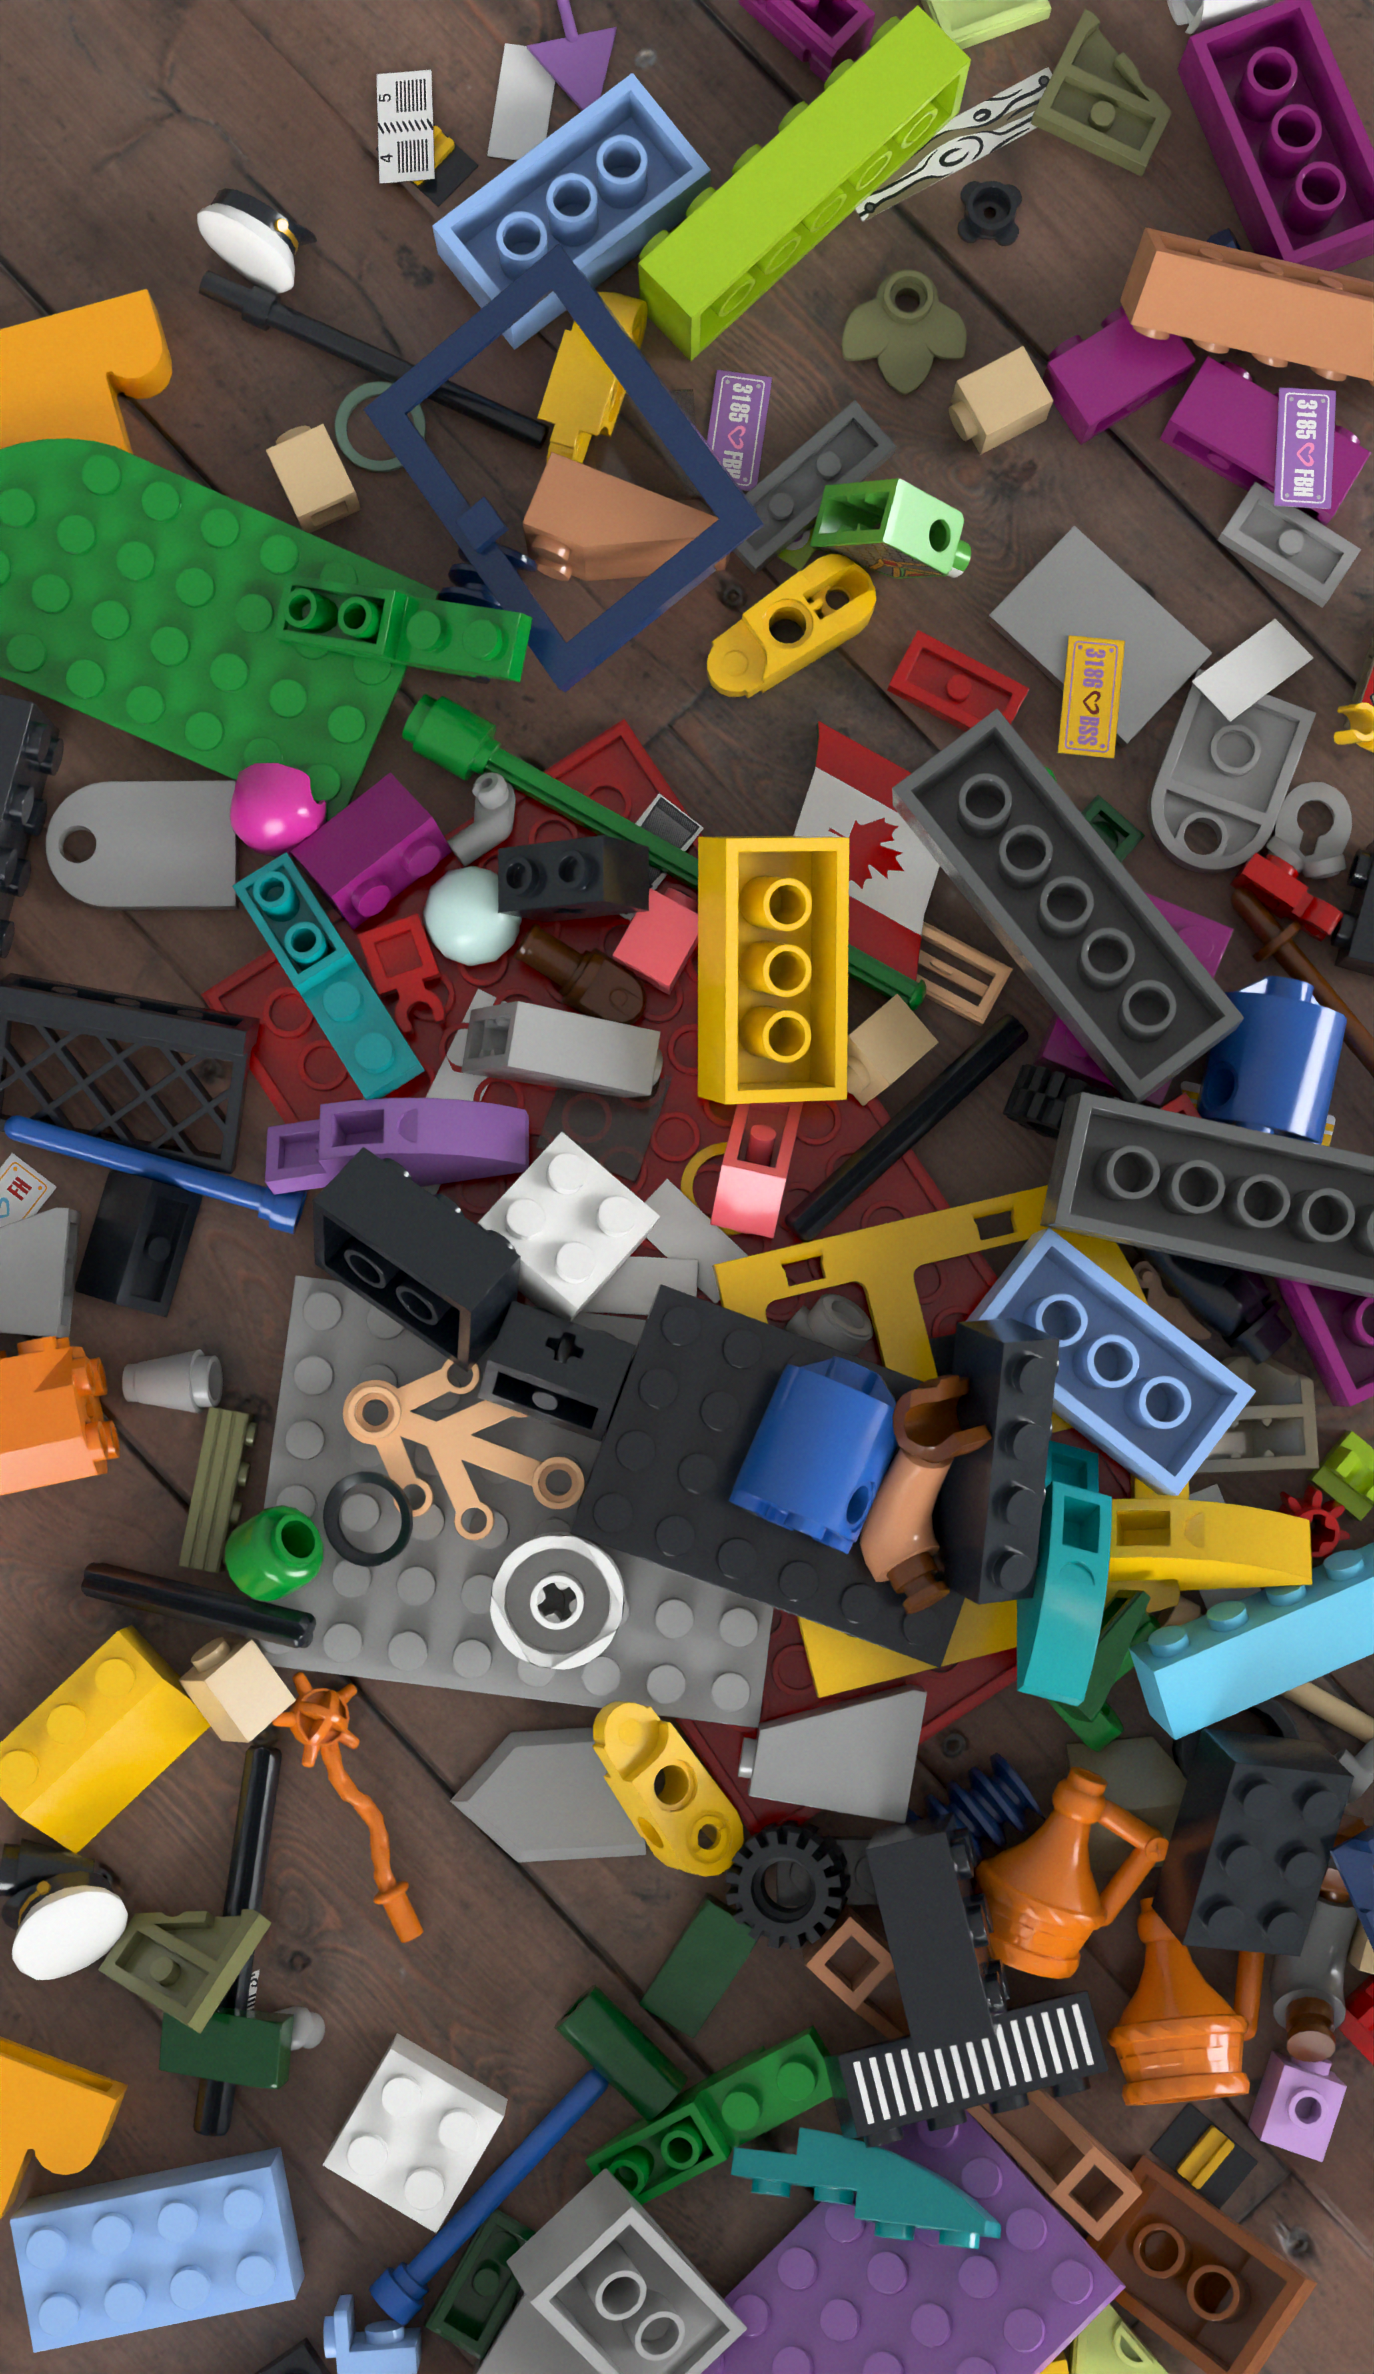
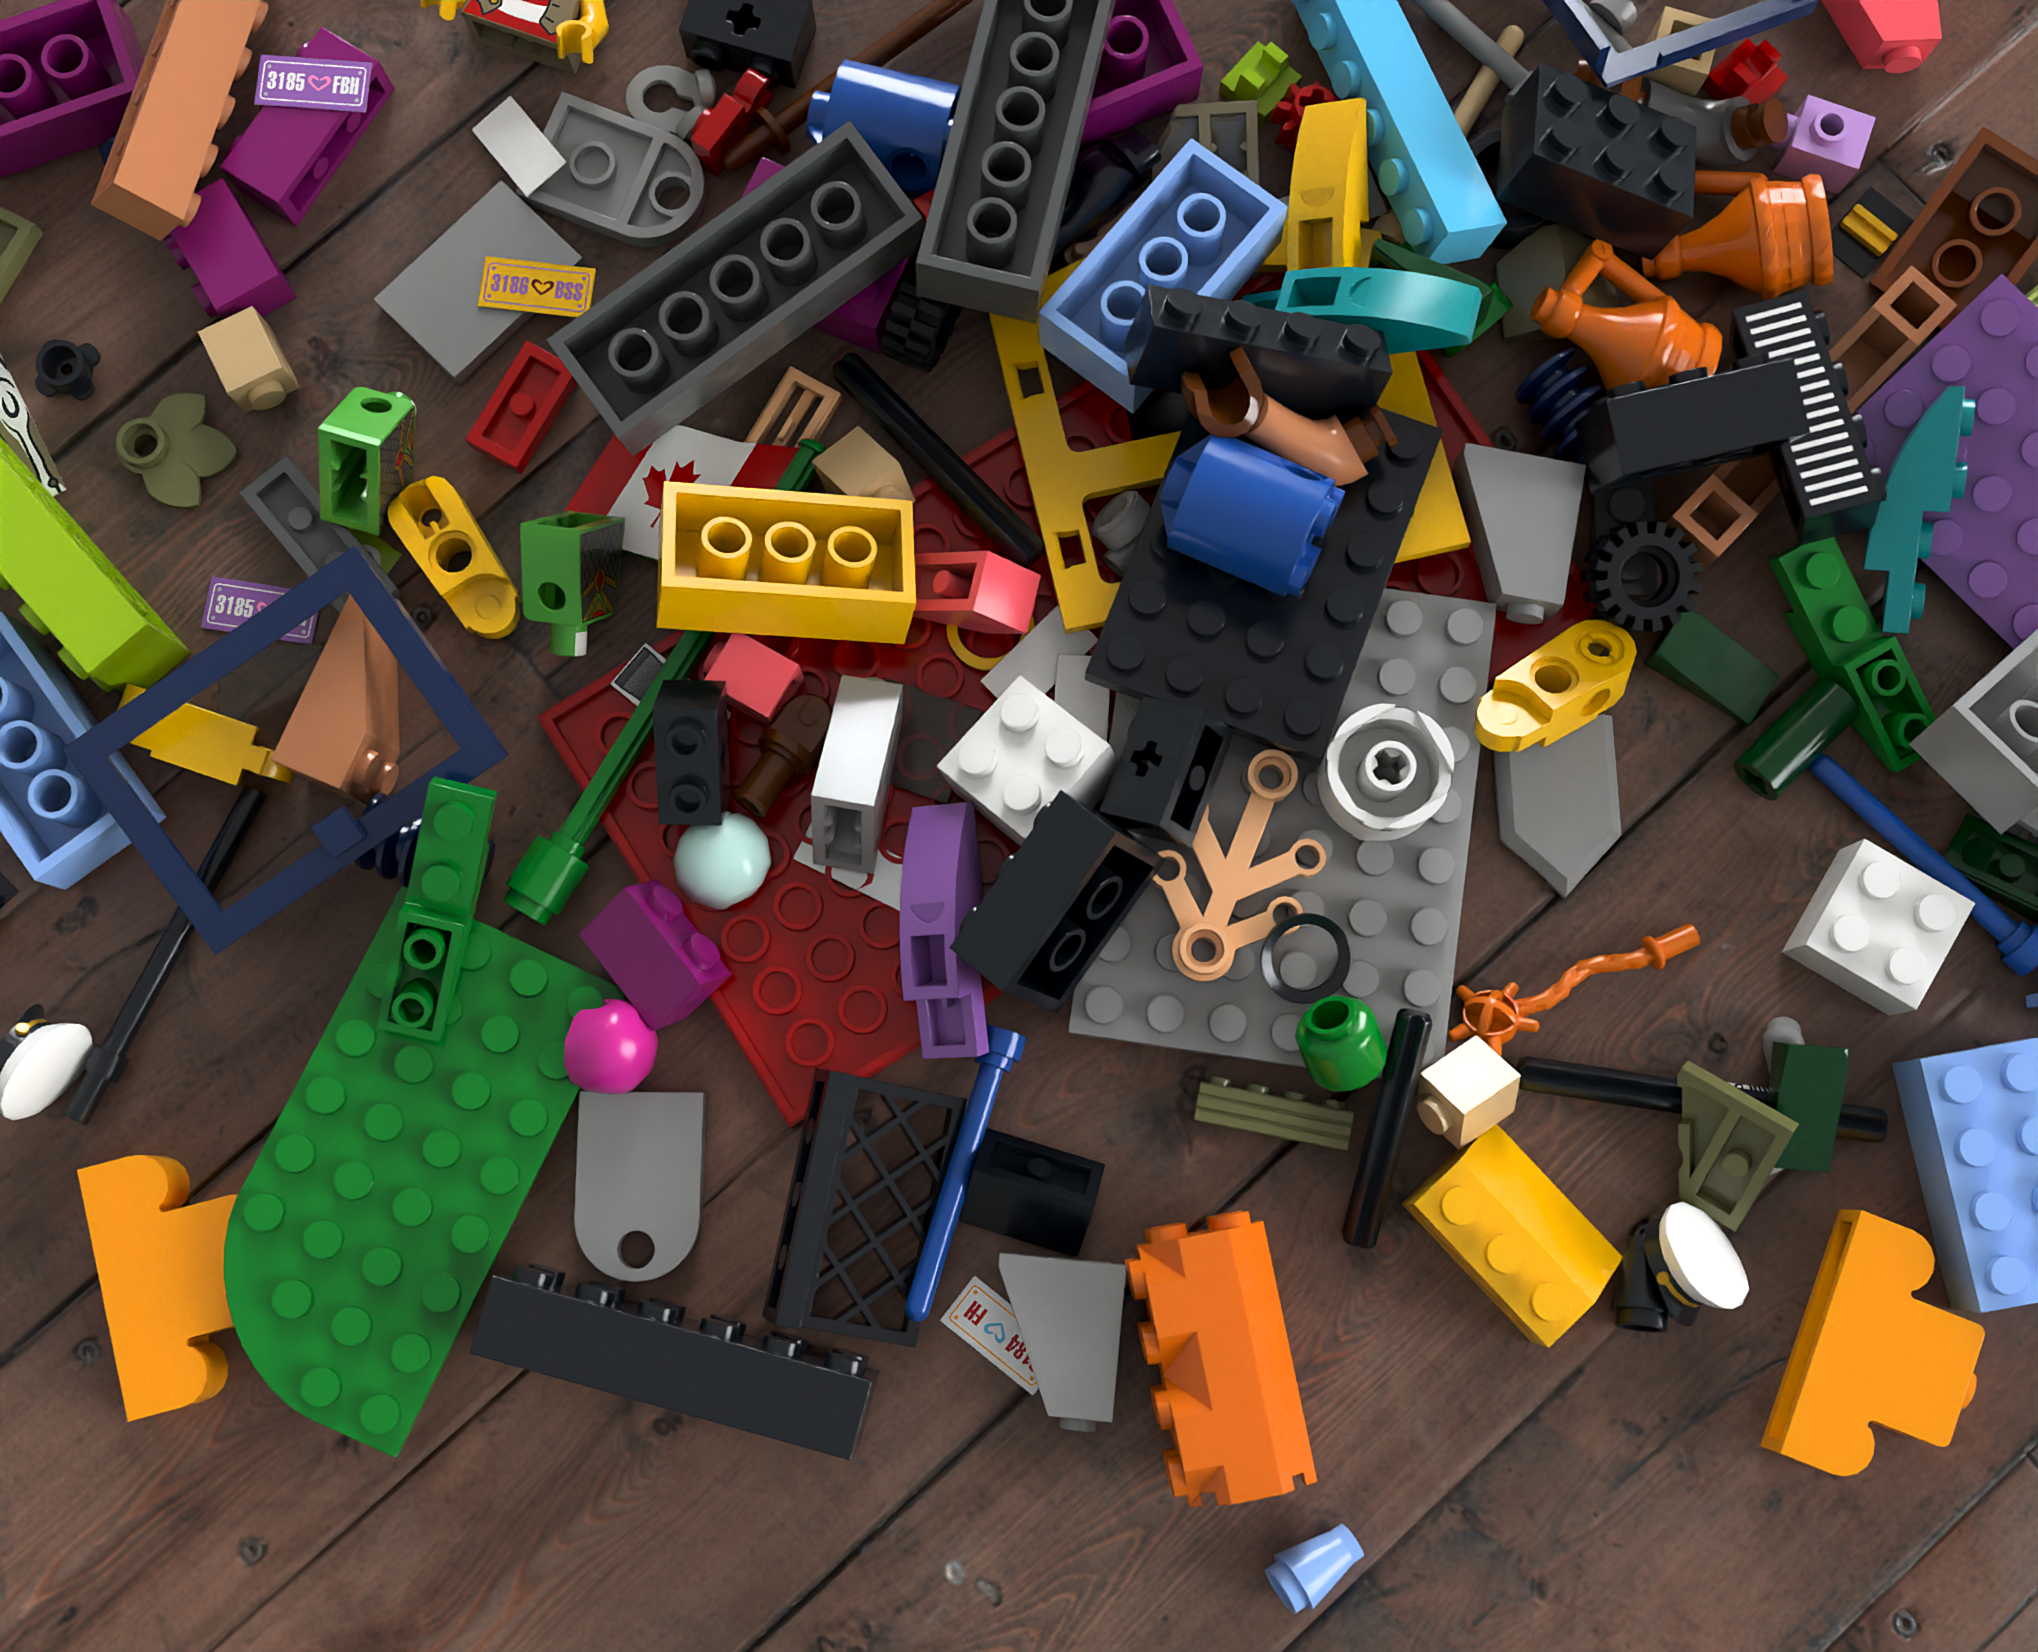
camera: 85 degrees left, 5 degrees down
(175, 1381) = (1168, 1155): light grey cone -> none
(313, 477) = (279, 1010): tan brick -> none
(328, 978) = (779, 995): teal slope -> none
(341, 420) = (199, 966): sand green piece -> none
(402, 963) = (765, 926): red plate -> none
(492, 819) = (630, 840): light grey arm -> none
(770, 747) = (570, 574): none -> bright green torso
(1289, 545) = (403, 110): light grey plate -> none

